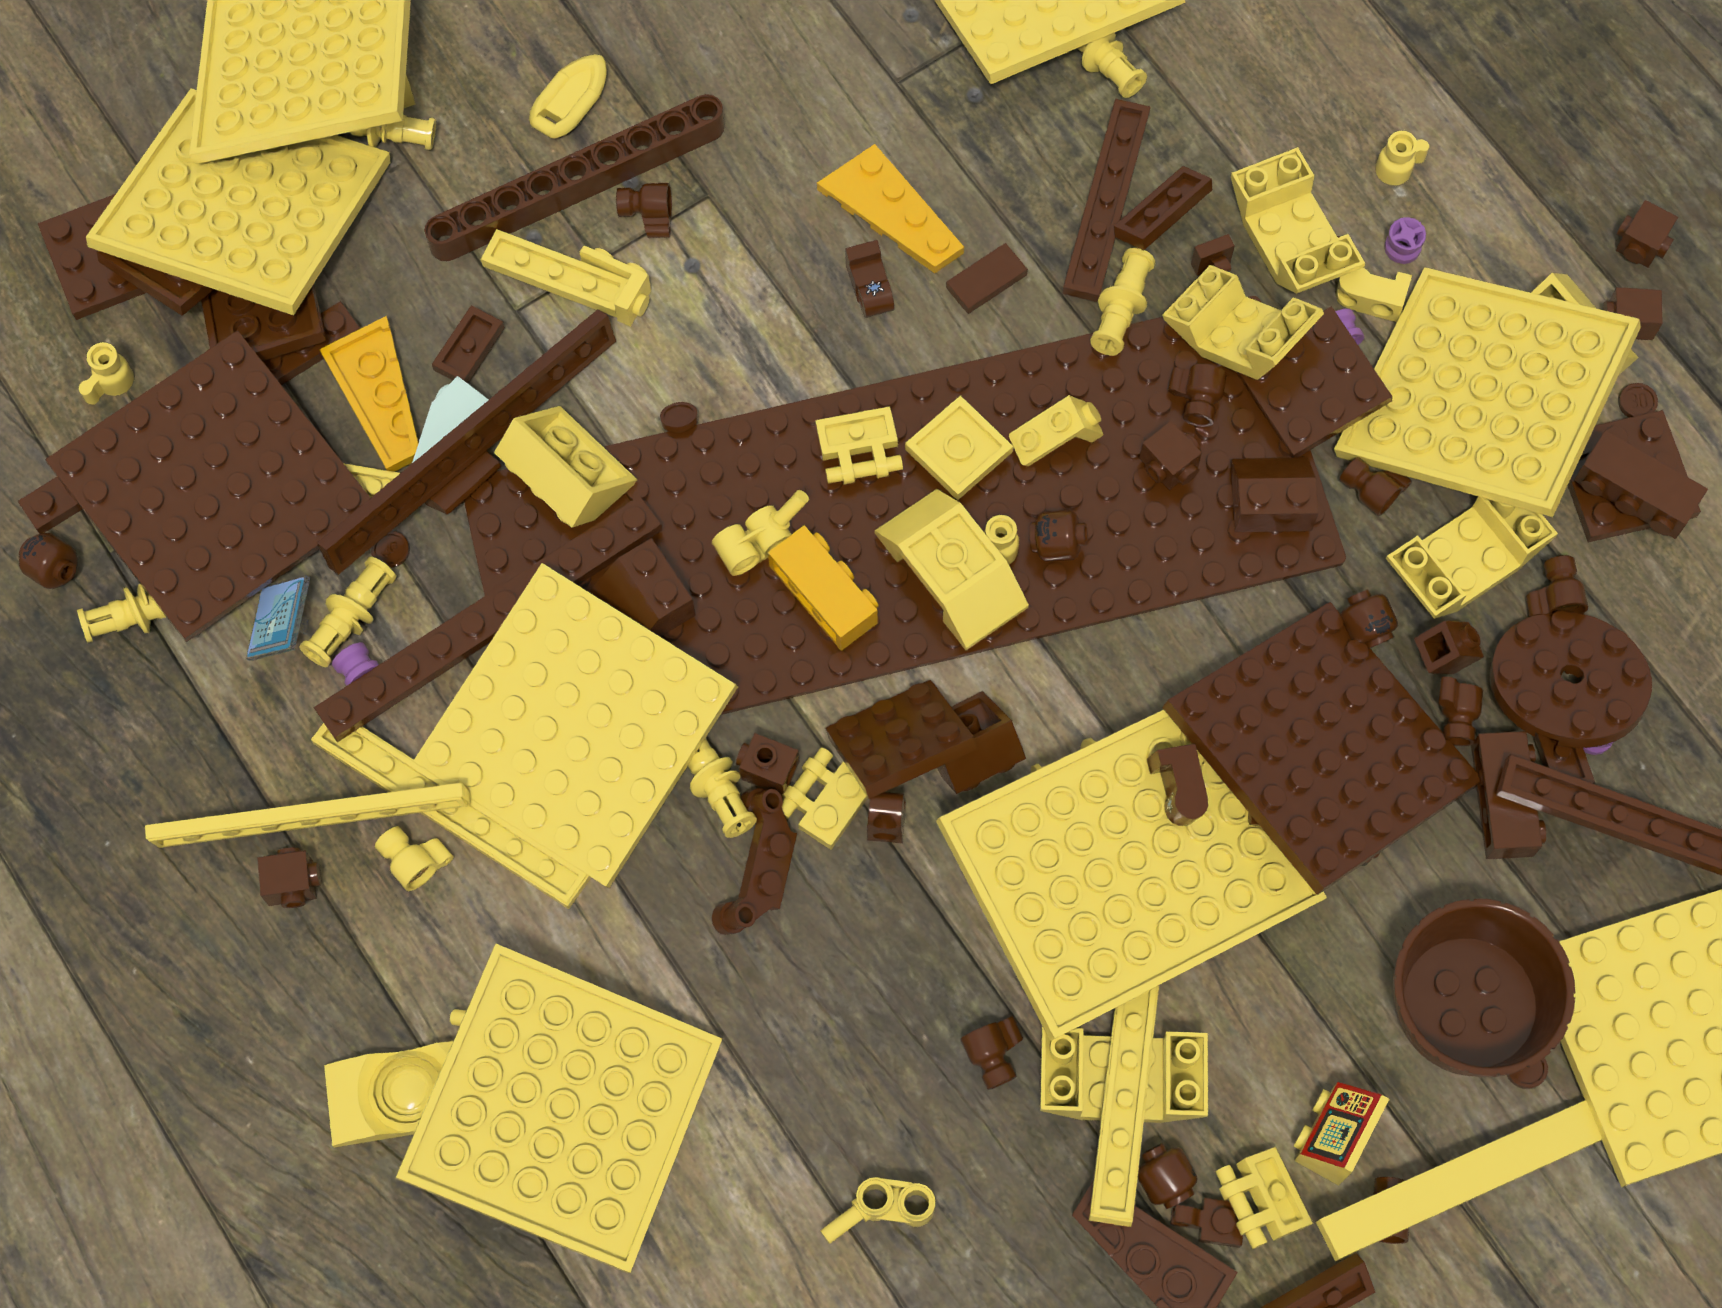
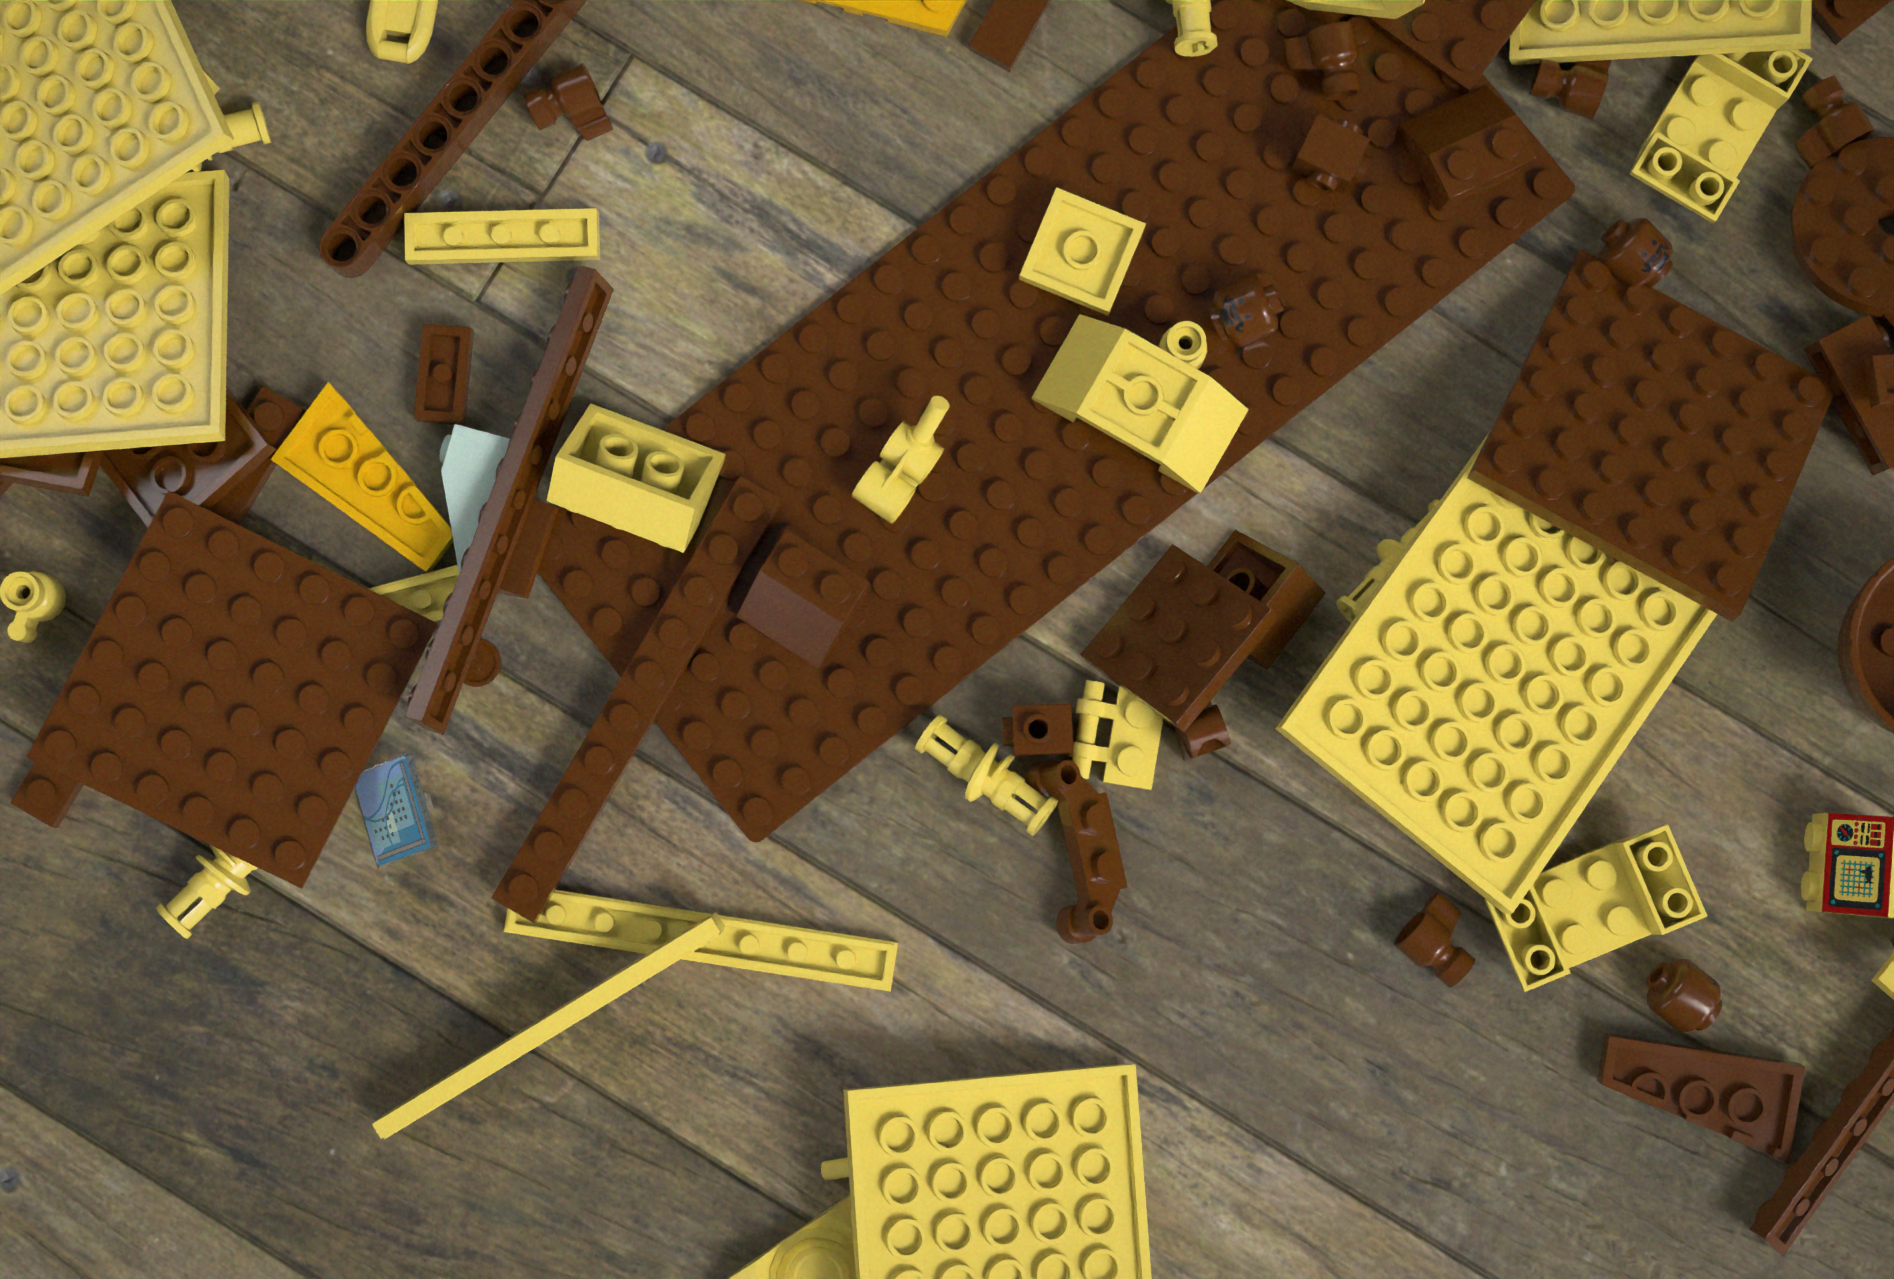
camera: 25 degrees left, 15 degrees up
(46, 560) = (86, 860): reddish brown head -> none
(288, 878) = (563, 1103): reddish brown brick -> none
(347, 611) = (470, 765): light yellow piece -> none
(353, 662) = (511, 823): medium lavender wheel -> none
(412, 863) = (691, 1023): light yellow piece -> none
(576, 724) = (800, 782): light yellow plate -> none
(635, 294) = (611, 228): light yellow bracket -> none
(679, 417) = (735, 353): reddish brown piece -> none
(824, 587) = (1006, 492): yellow brick -> none
(859, 434) = (958, 286): light yellow plate -> none
(869, 278) = (878, 82): reddish brown leg -> none
(894, 1209) = (1407, 1166): light yellow beam -> none
(1056, 427) = (1184, 180): light yellow bracket -> none
(1123, 1111) = (1615, 956): light yellow tile -> none
(1182, 783) = (1526, 555): reddish brown leg -> none
(1214, 1220) = (1753, 1017): reddish brown plate -> none
(1272, 1192) = (1805, 963): light yellow plate -> none
(1449, 647) = (1742, 248): reddish brown brick -> none
(1461, 706) = (1781, 314): reddish brown piece -> none

